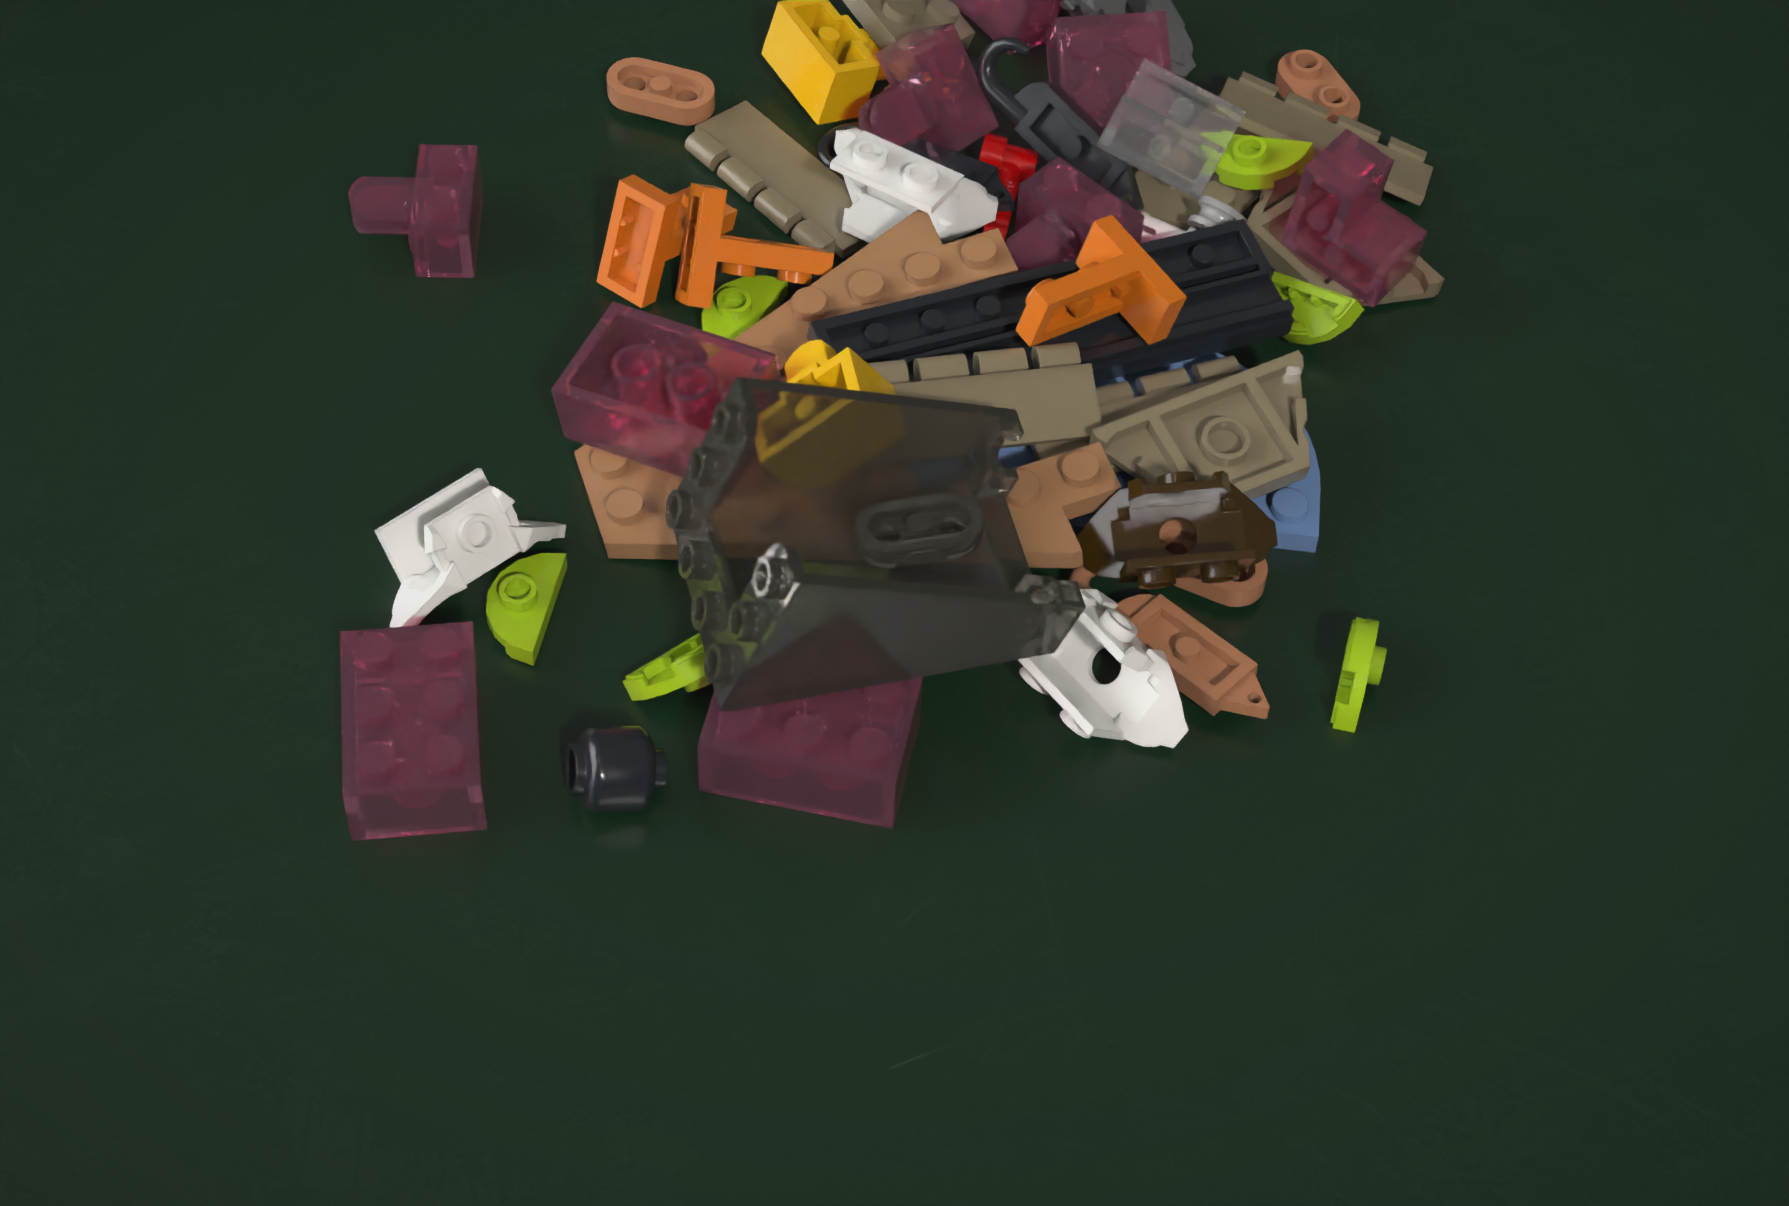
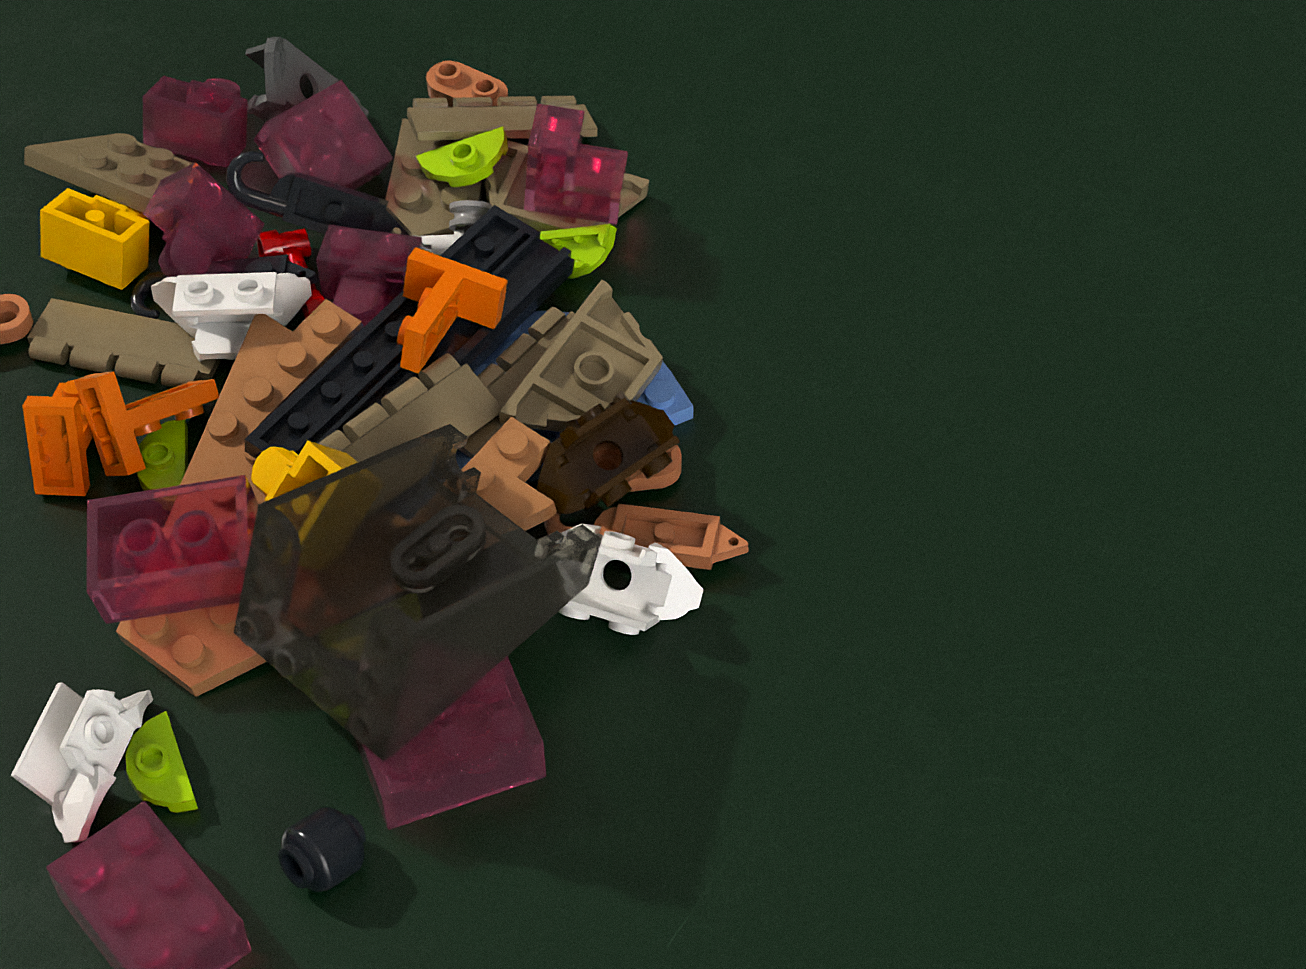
camera: 30 degrees left, 0 degrees up
(674, 669) = (317, 744): lime plate -> none
(1171, 129) = (400, 164): clear slope -> none
(1361, 665) = (784, 481): lime plate -> none

